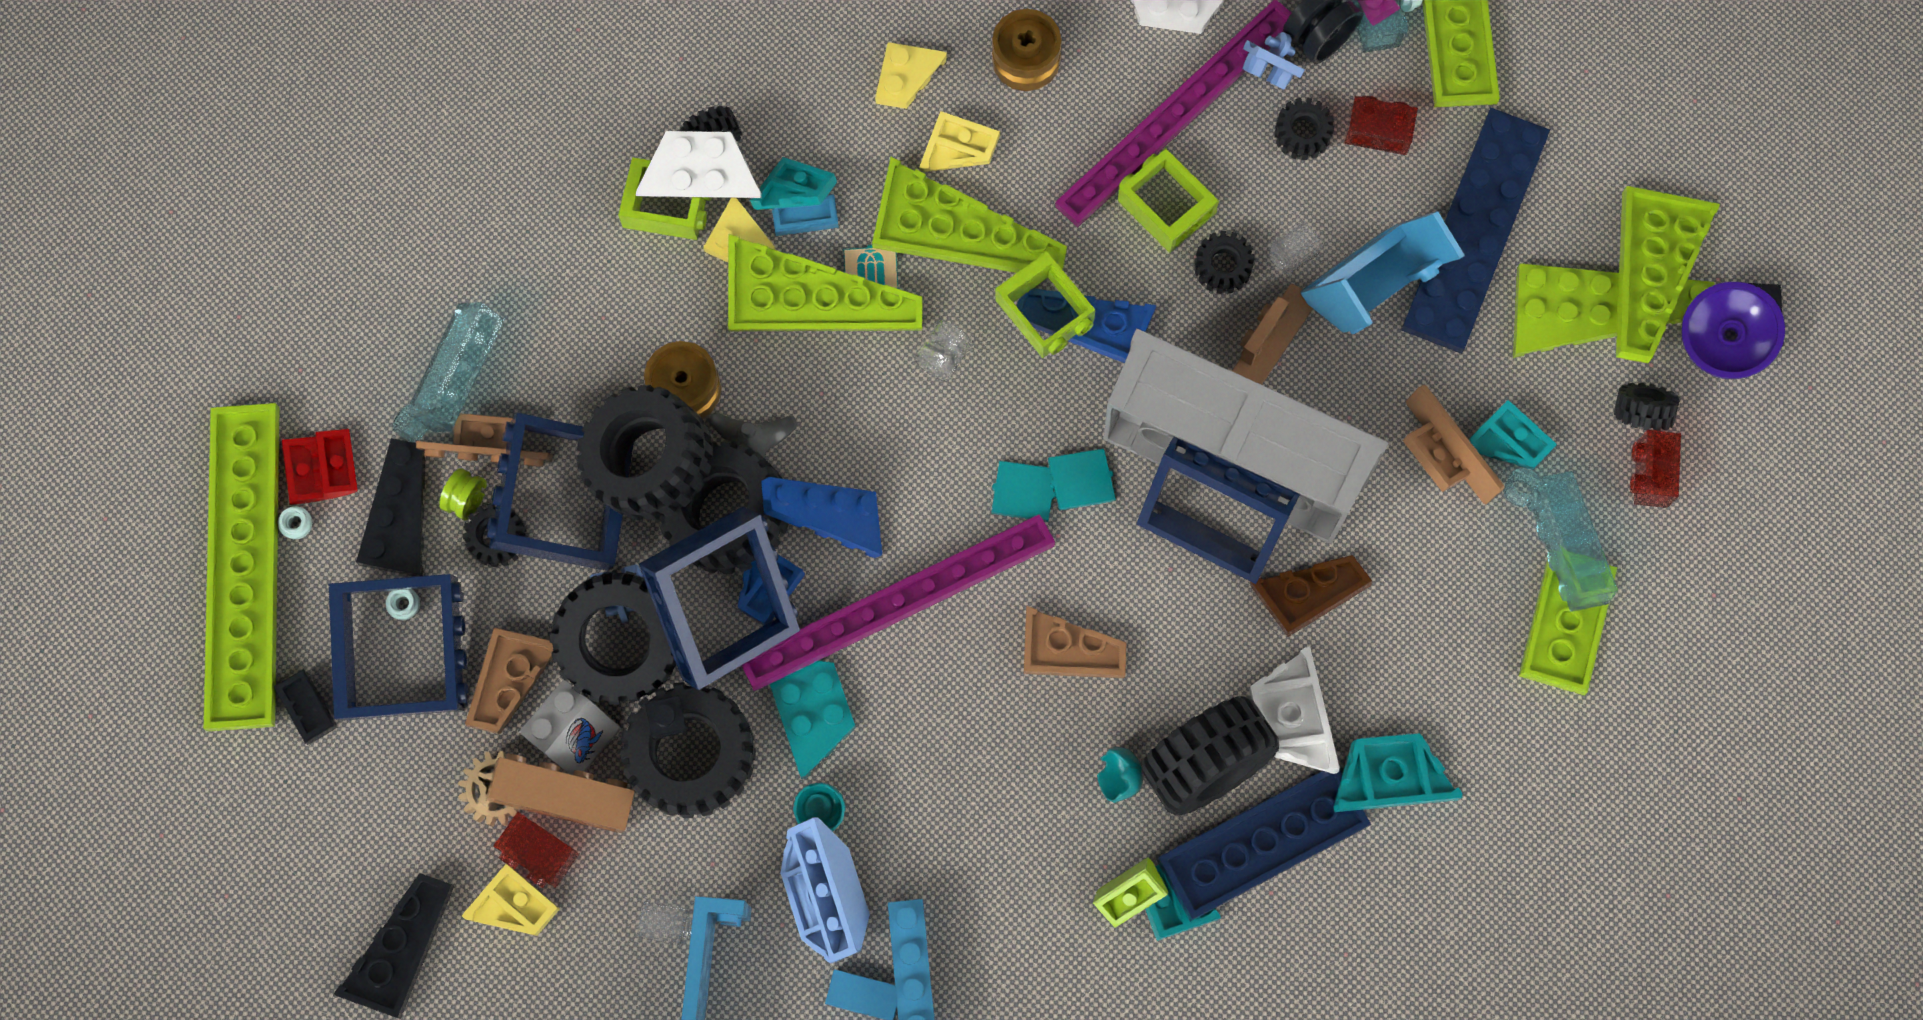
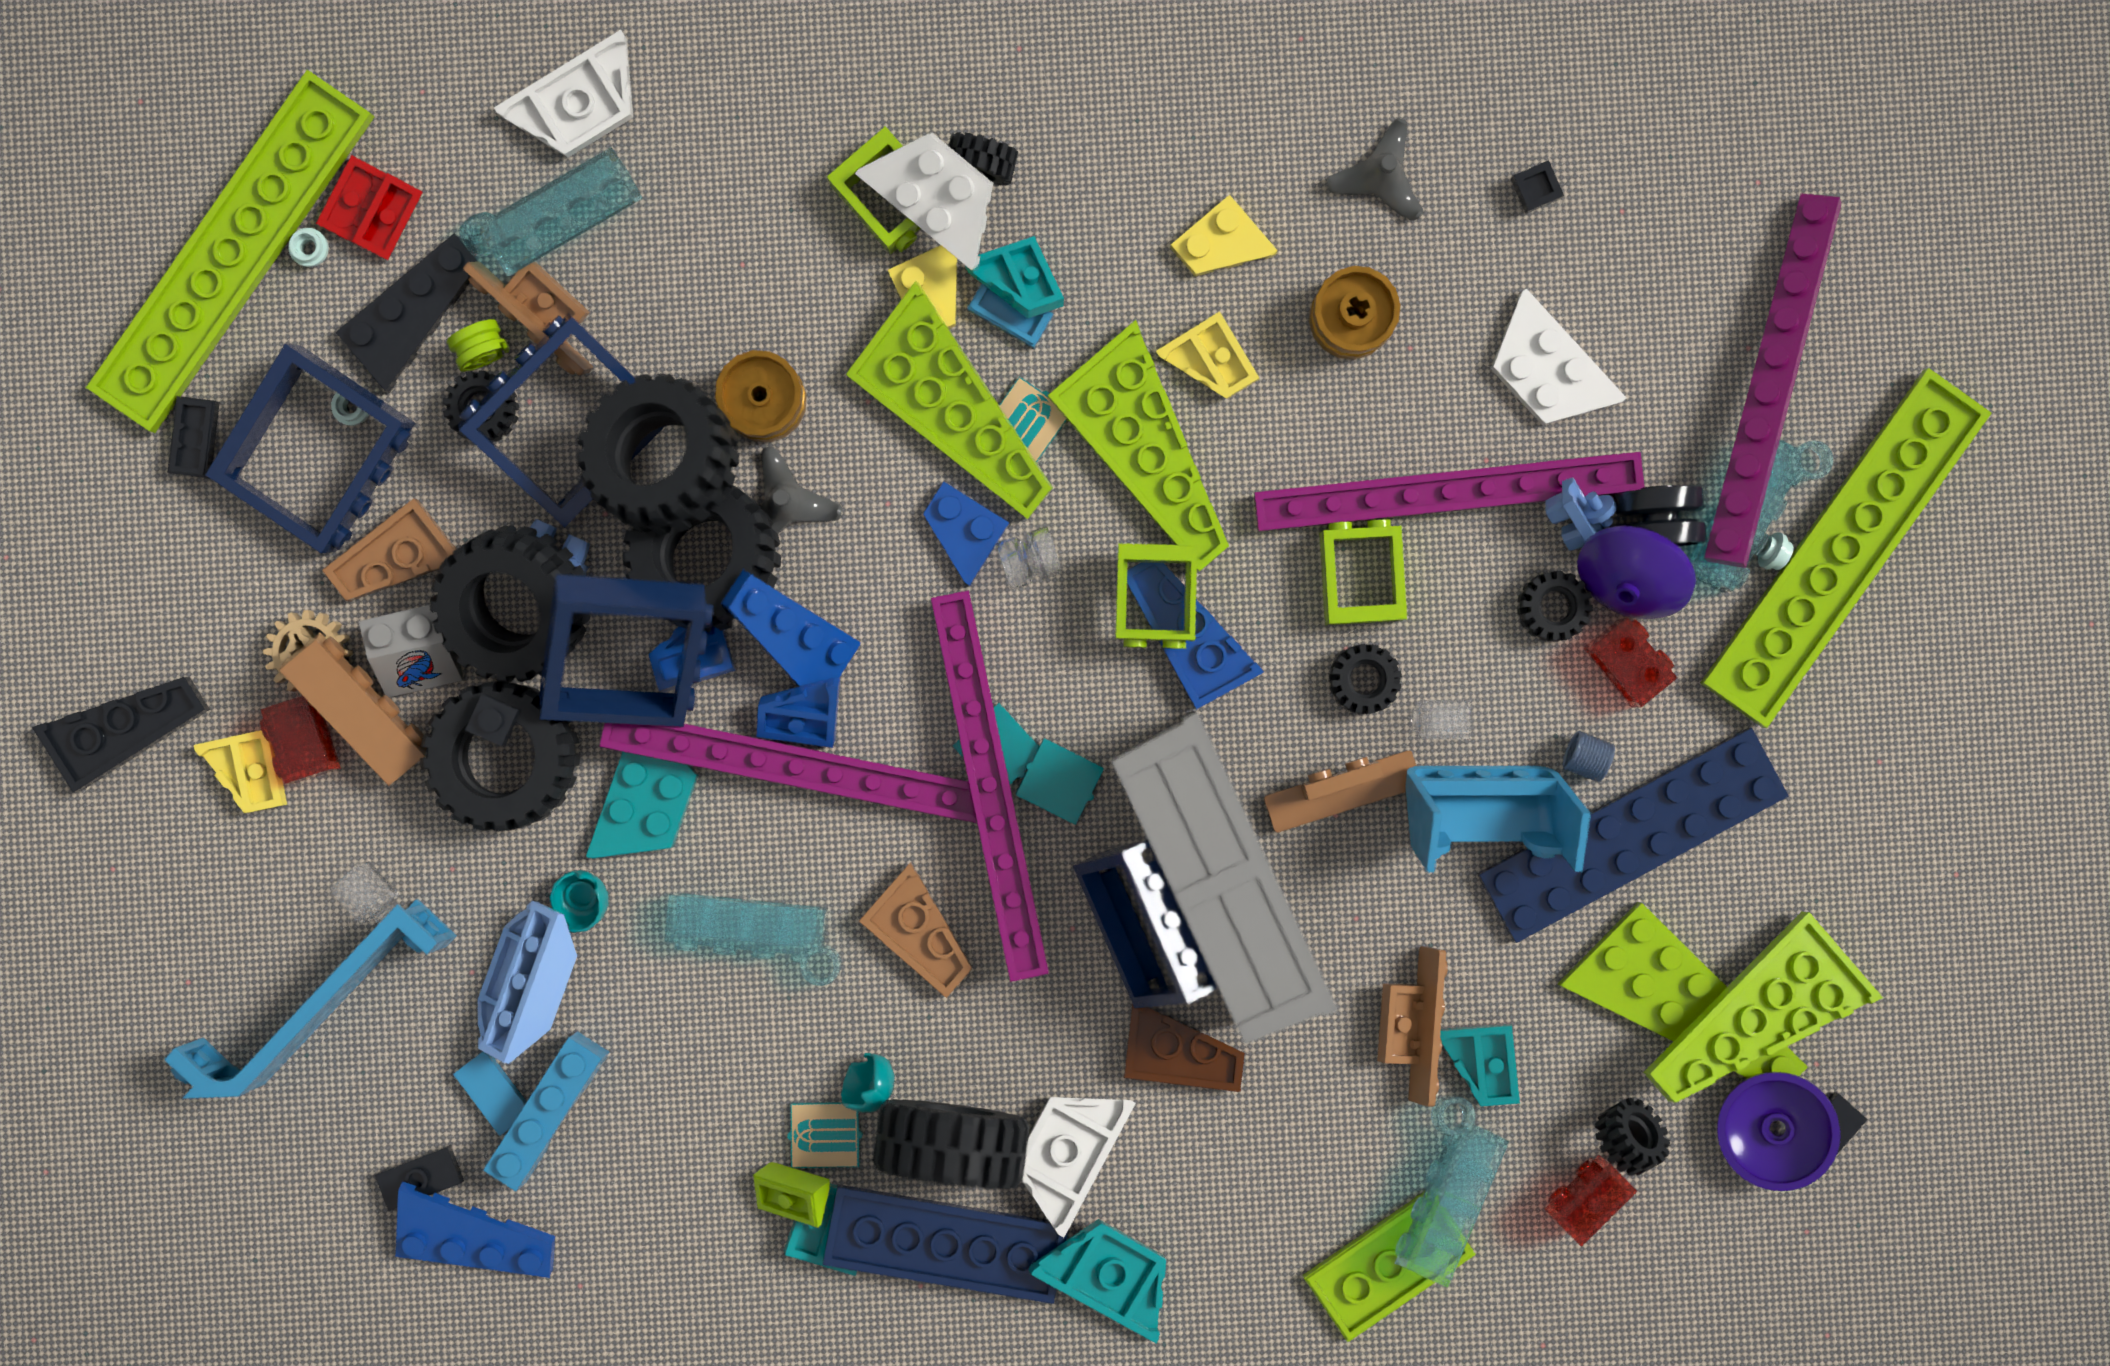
camera: 35 degrees right, 15 degrees up
(411, 296) = (577, 99): none -> white wing
(873, 564) = (801, 714): none -> blue wing
(885, 368) = (964, 529): none -> blue wing
(953, 732) = (752, 926): none -> clear light blue hinge
(1040, 512) = (989, 786): none -> magenta plate
(1119, 839) = (824, 1135): none -> piece
(1331, 50) = (1636, 572): none -> dark purple dish
(1406, 199) = (1588, 756): none -> sand blue piece

